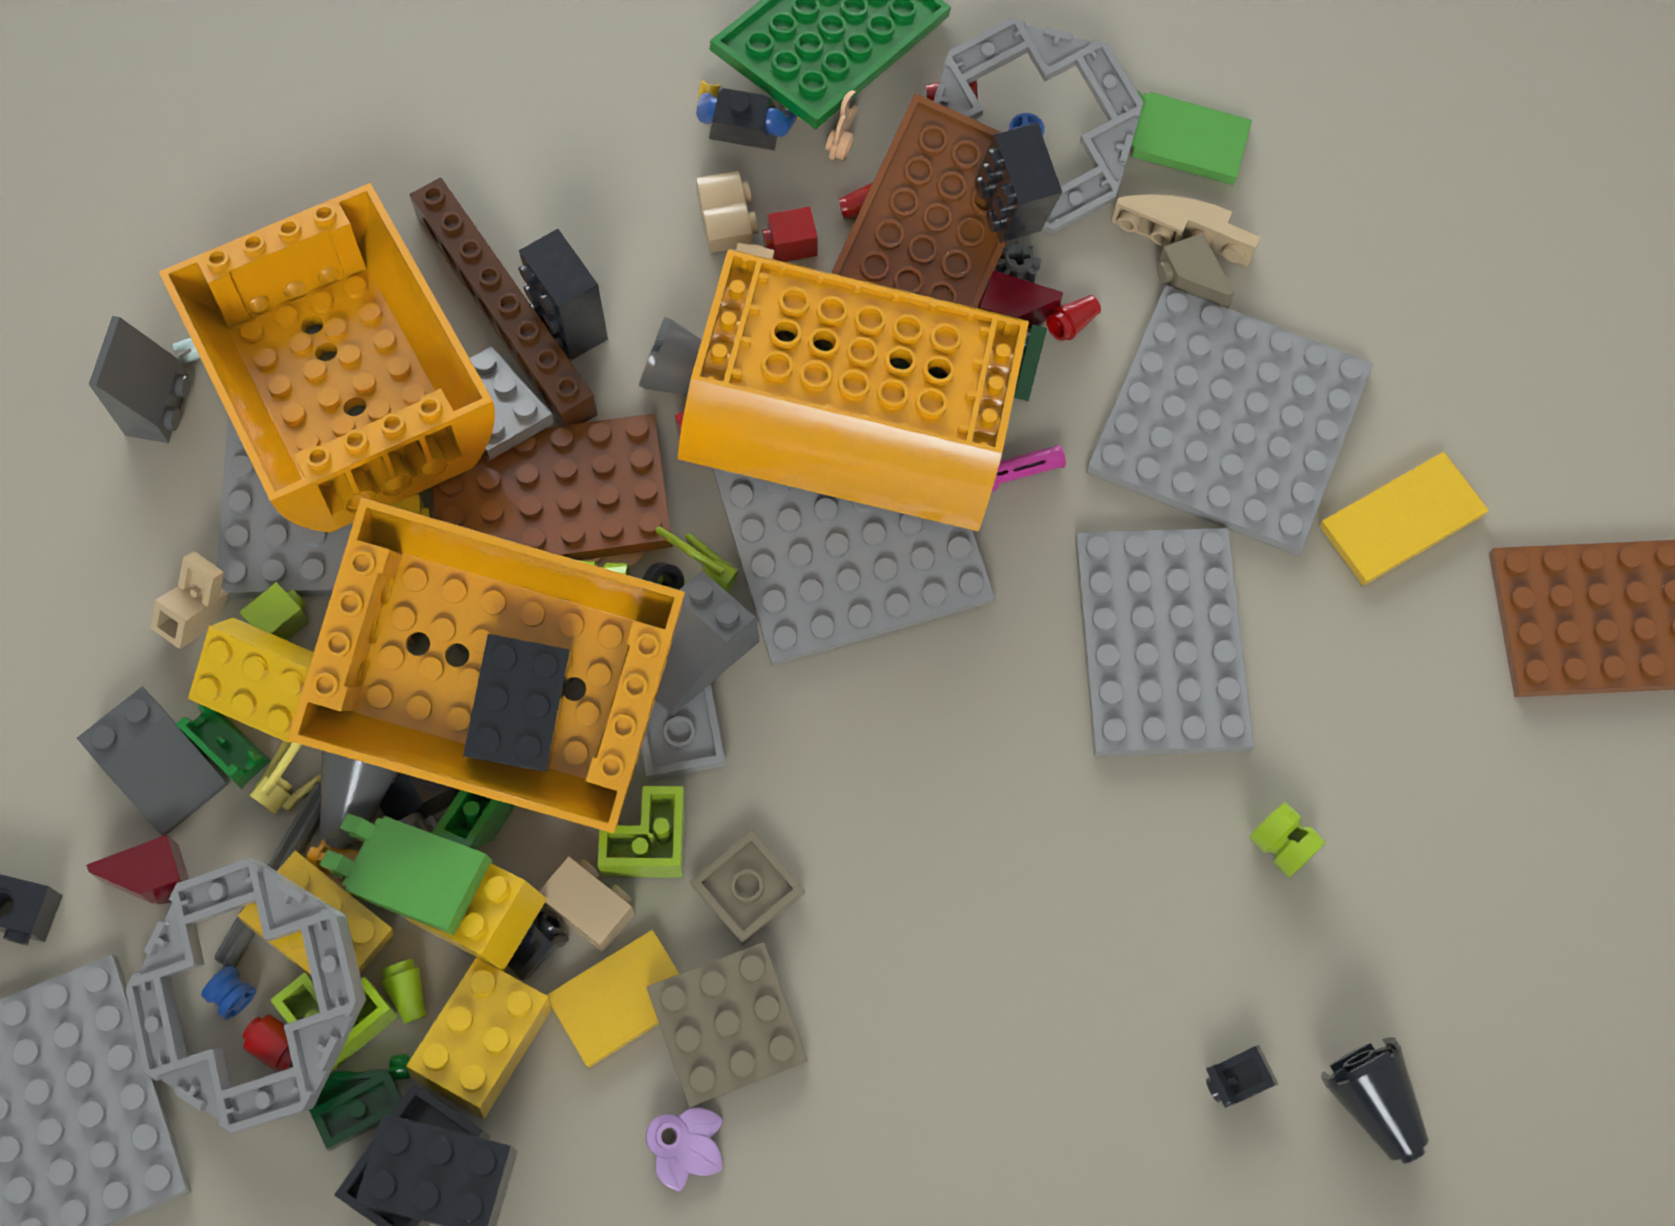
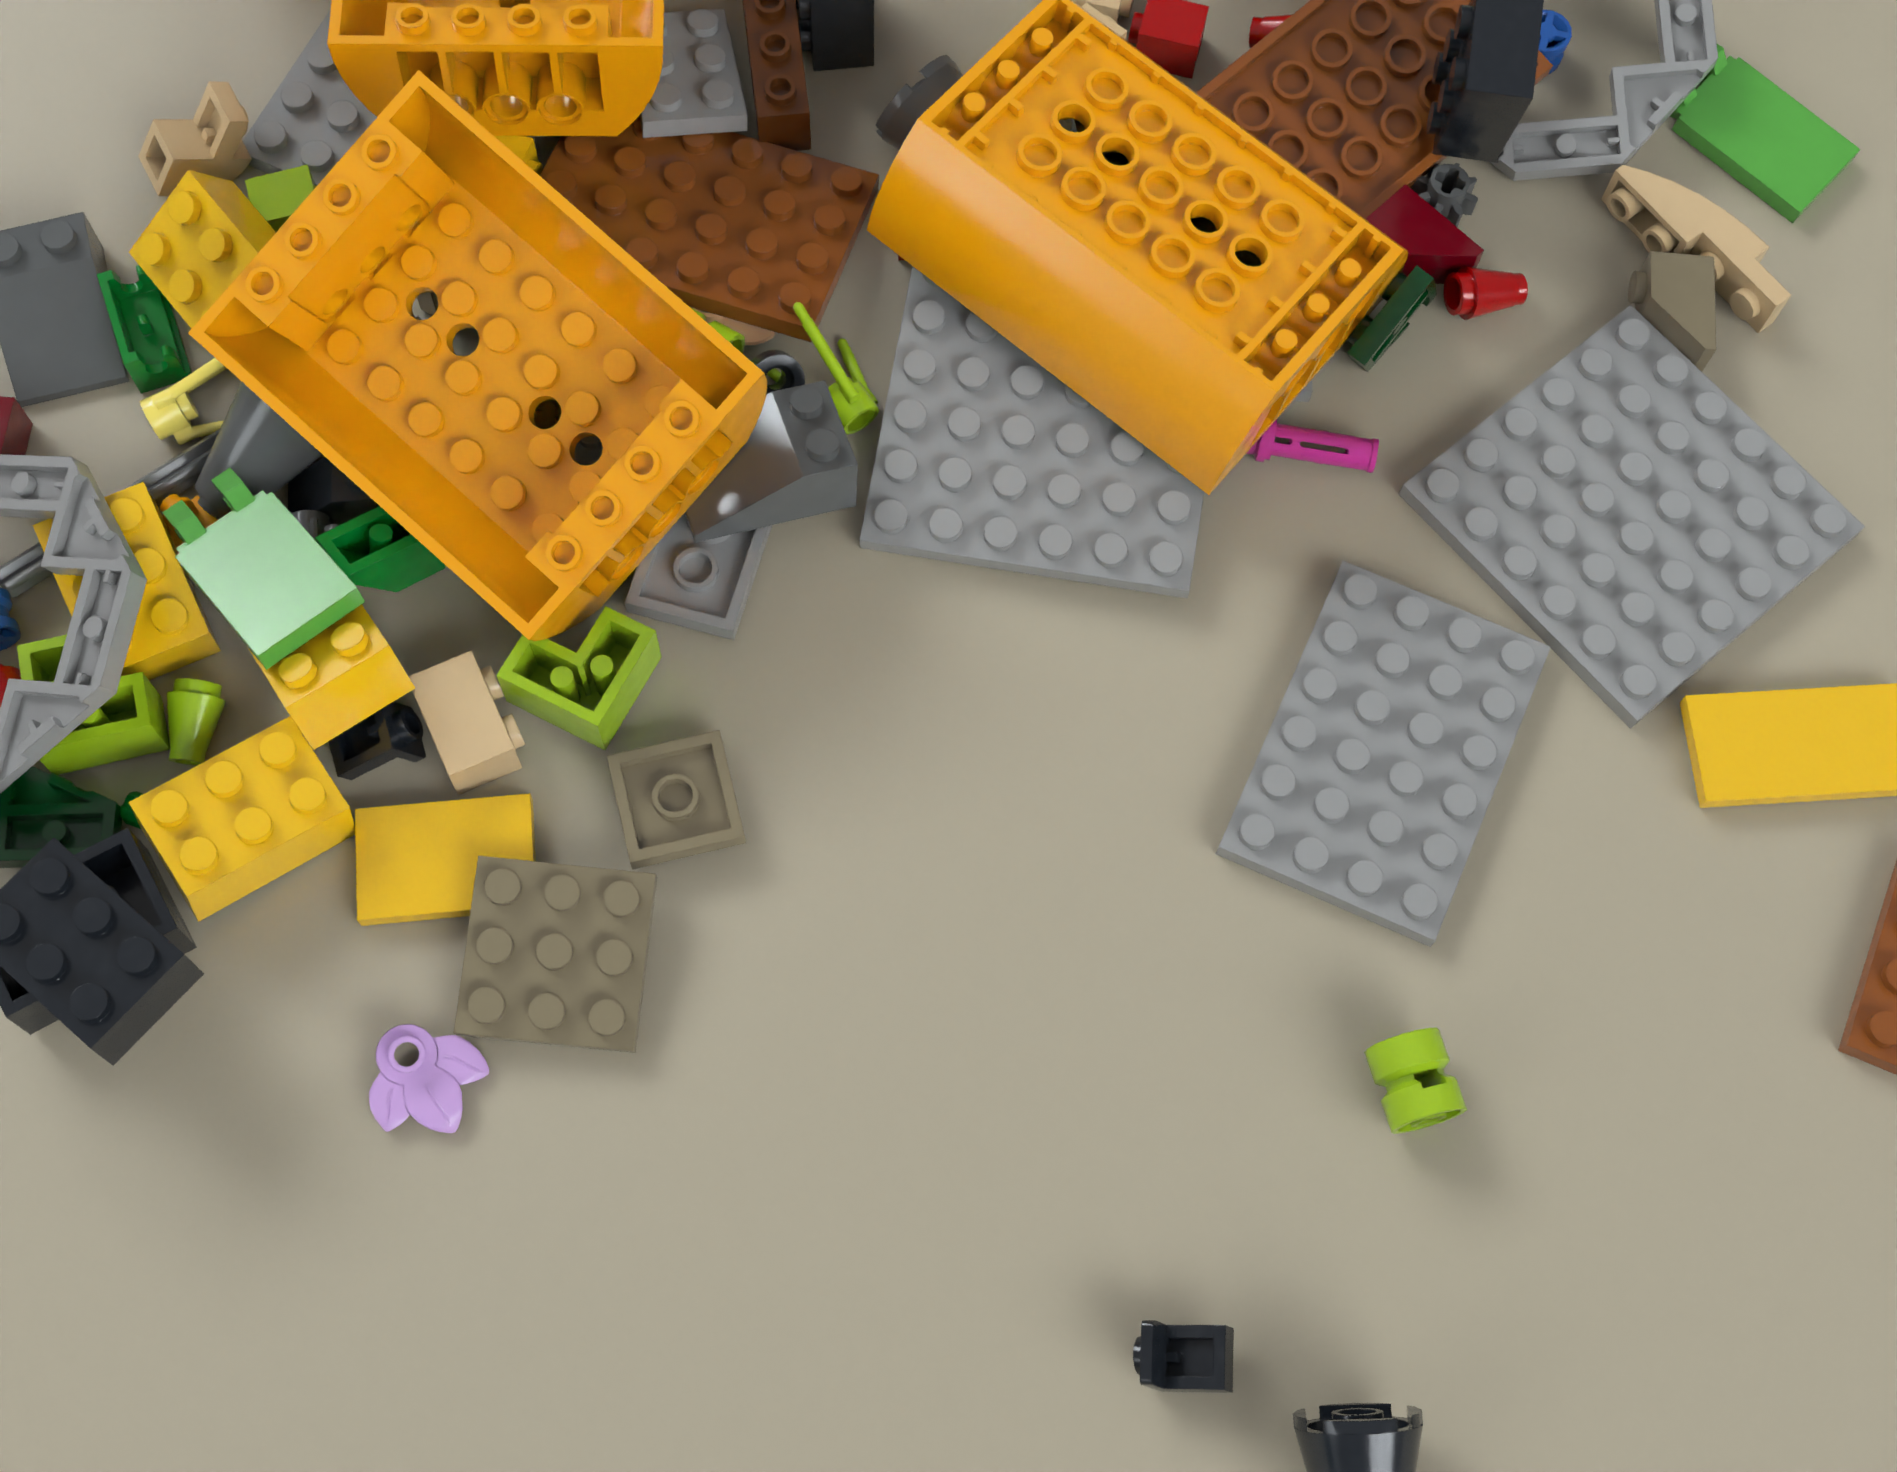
camera: 25 degrees right, 0 degrees up
(517, 703) = (500, 426): black brick -> none

